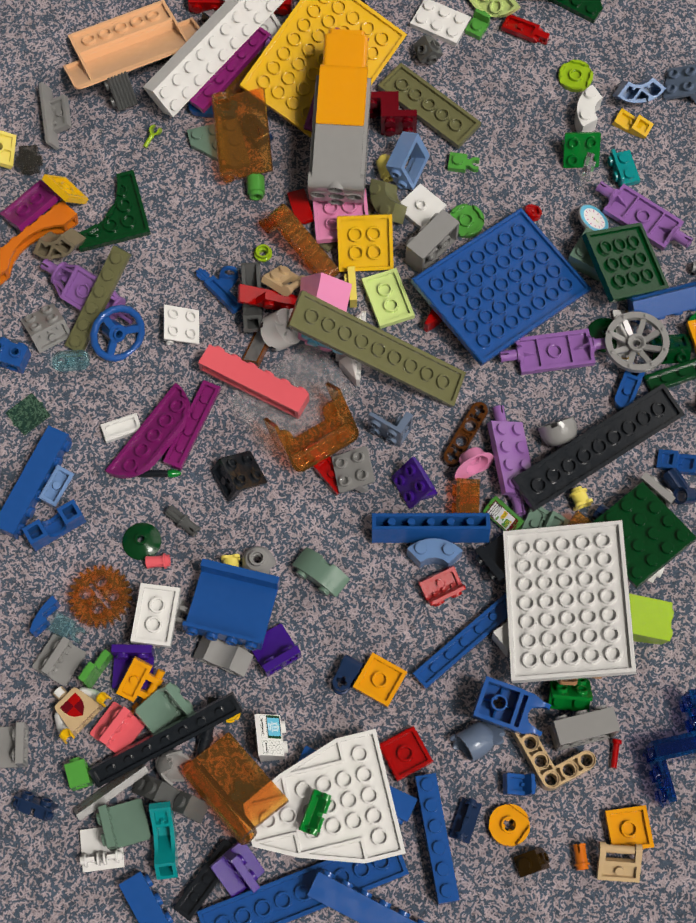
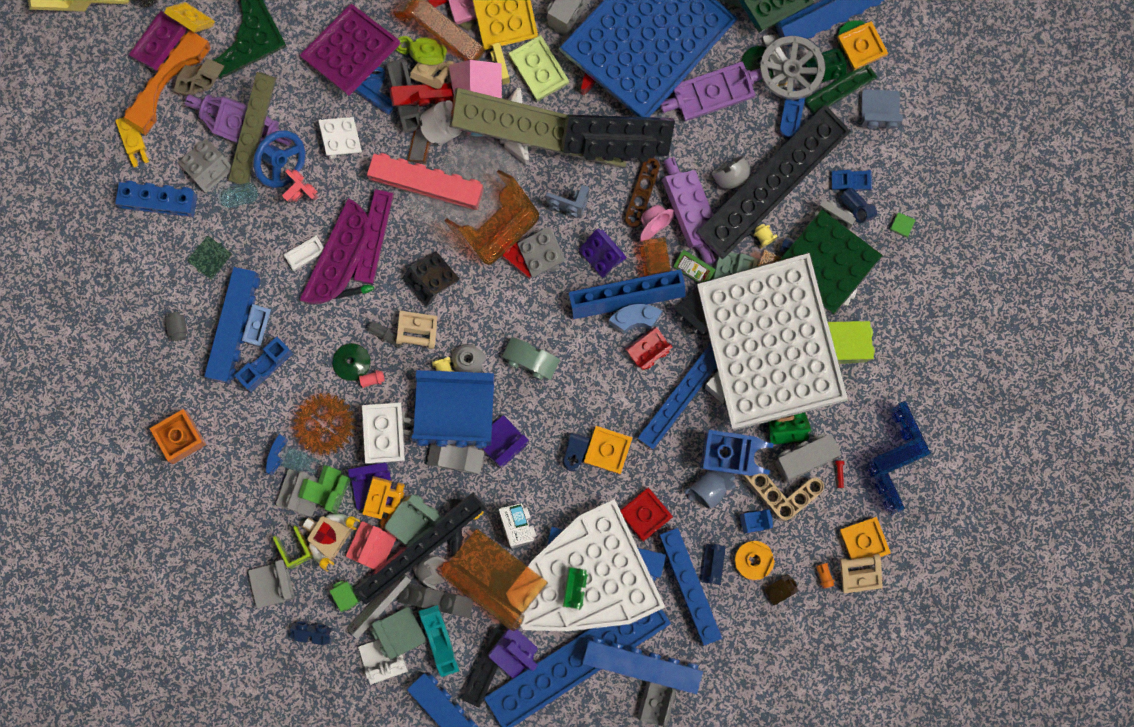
camera: 10 degrees left, 10 degrees up
(33, 730) = (289, 564): none -> lime piece
(76, 661) = (320, 491): none -> bright green tile
(127, 364) = (295, 192): none -> coral bracket
(209, 246) = (350, 49): none -> magenta plate
(214, 516) = (417, 324): none -> tan plate
(284, 262) = (428, 51): none -> lime tile
(451, 373) = (617, 137): none -> black plate

